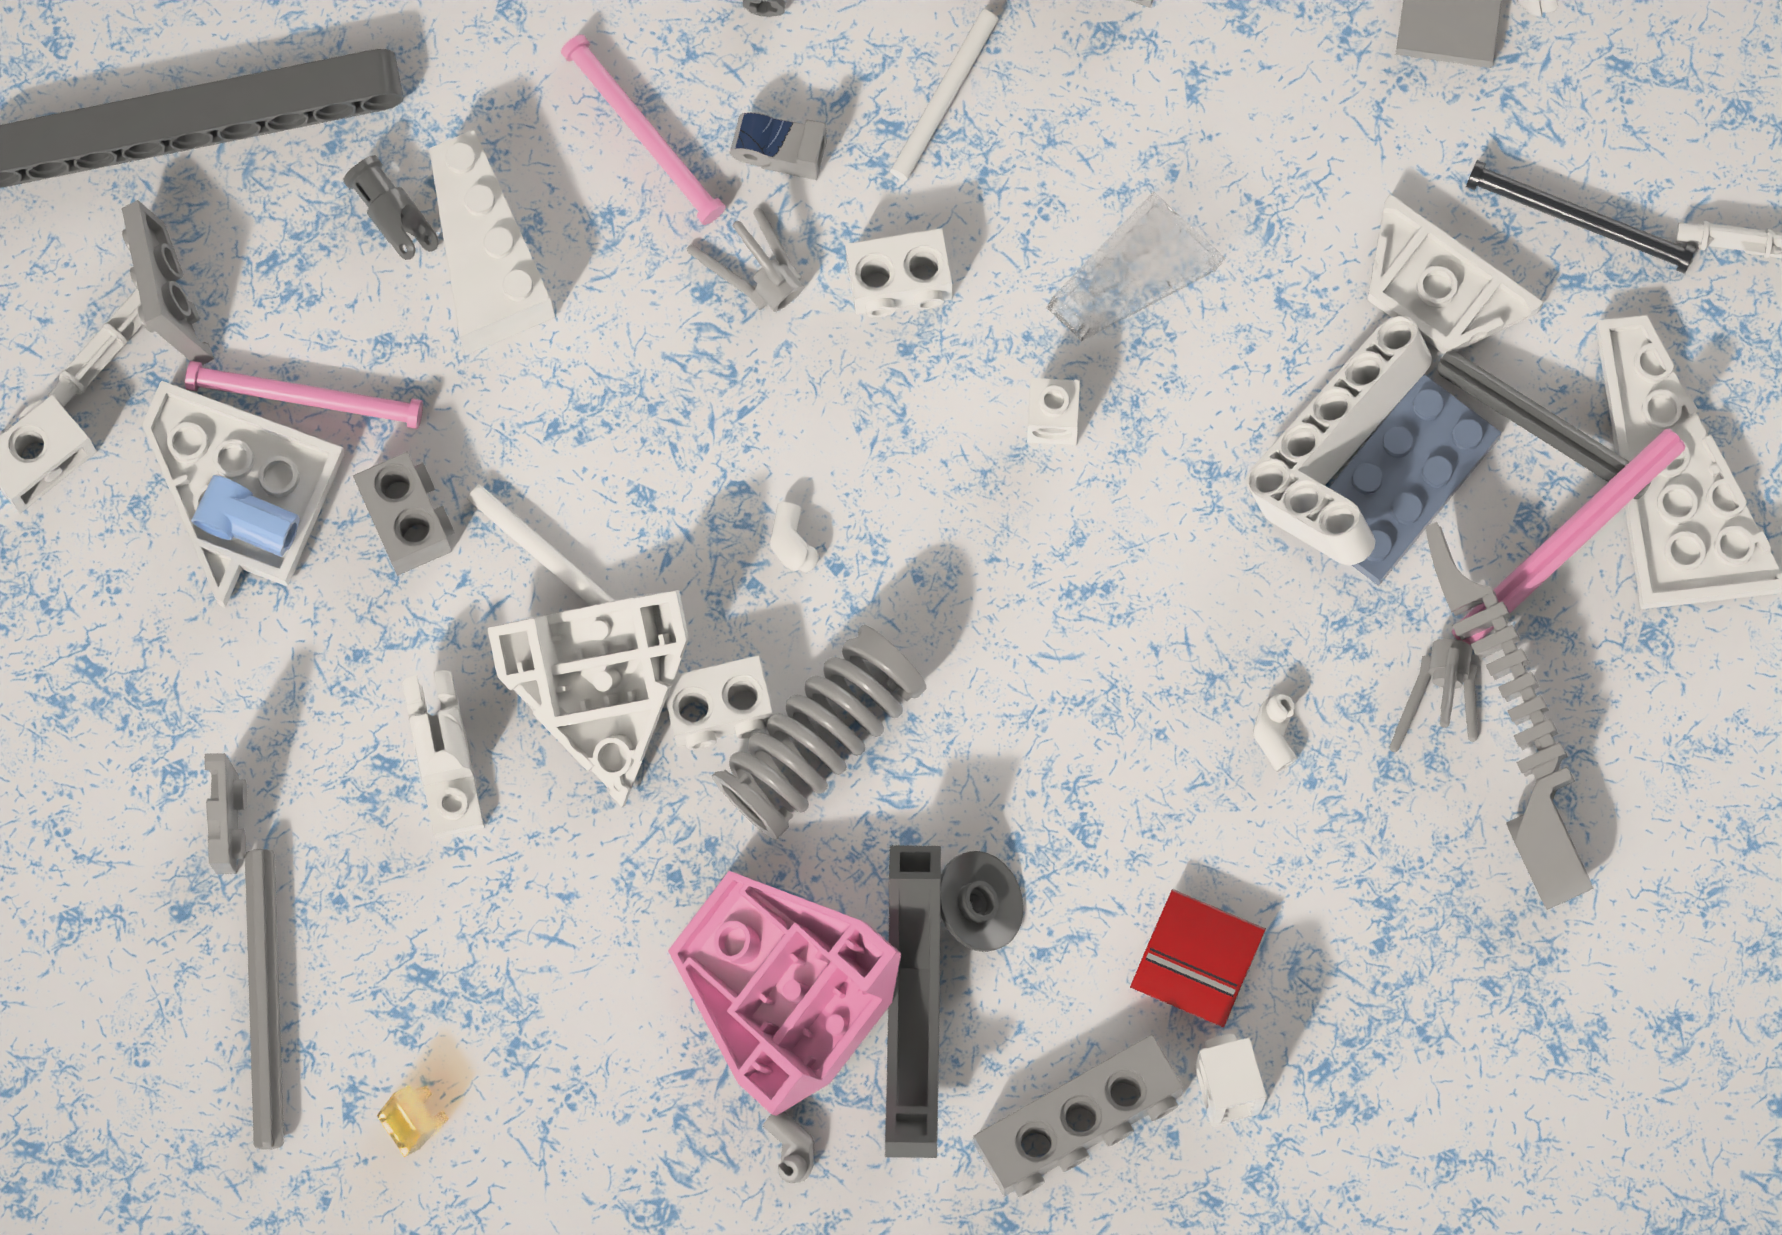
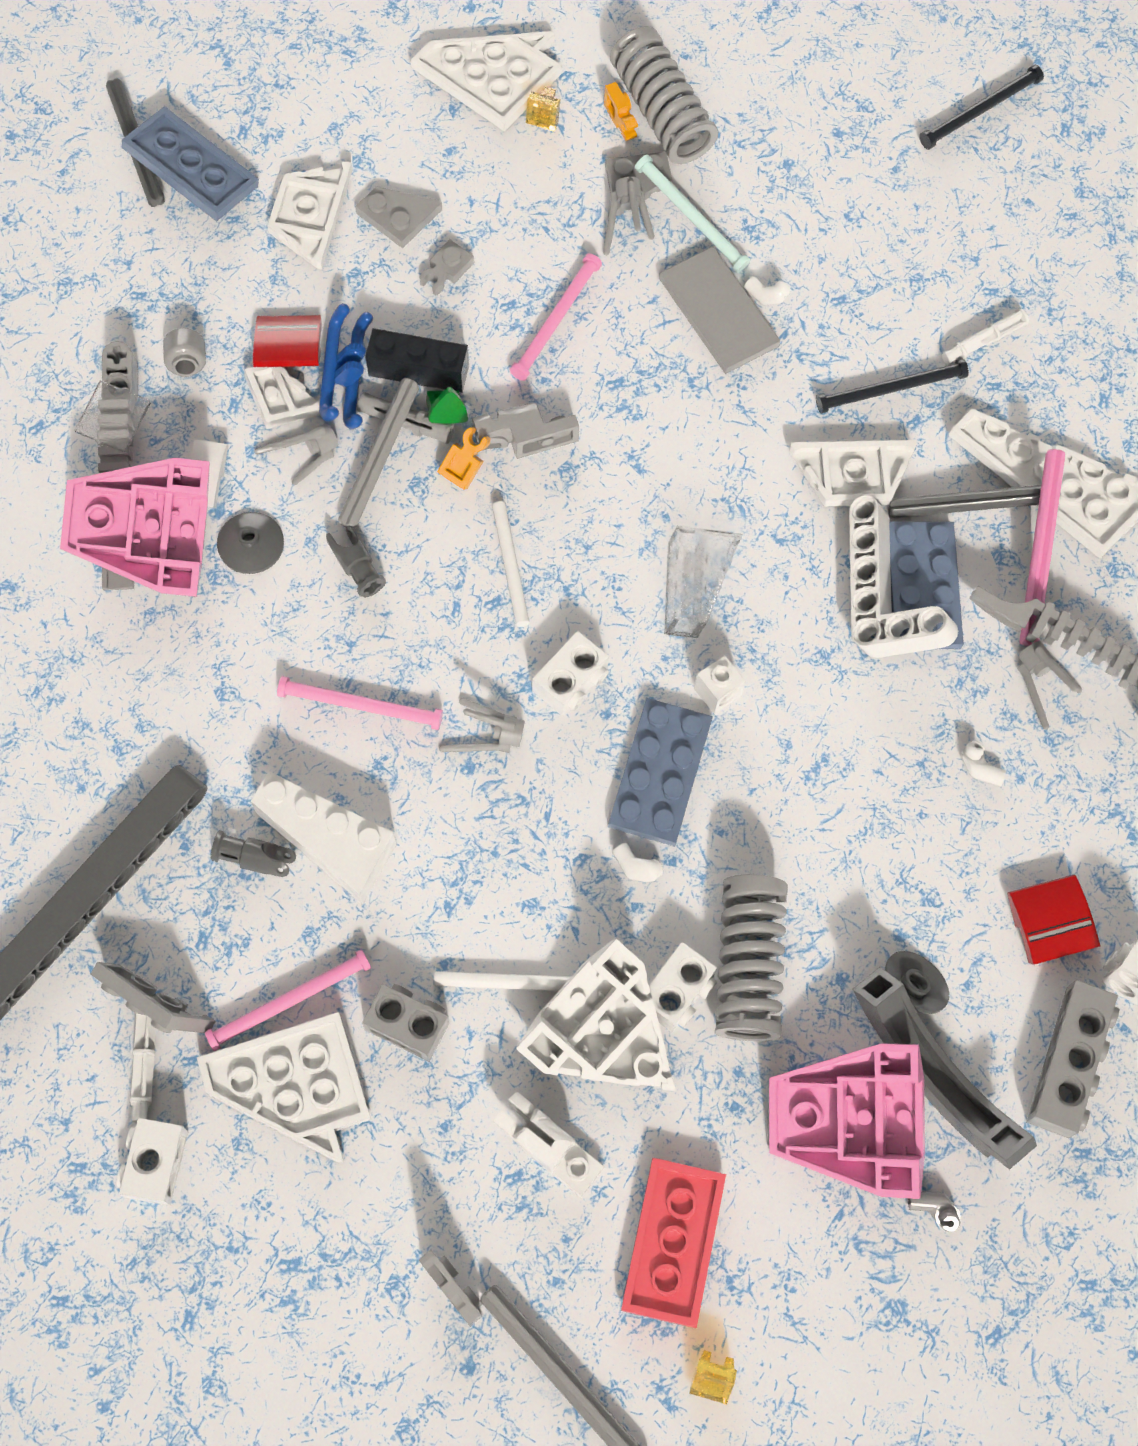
camera: 45 degrees left, 5 degrees down
(233, 511) = (307, 1100): light blue piece -> none
(487, 956) = (673, 1243): none -> coral plate
(780, 144) = (445, 654): light grey leg -> none
(907, 458) = (660, 772): none -> sand blue plate

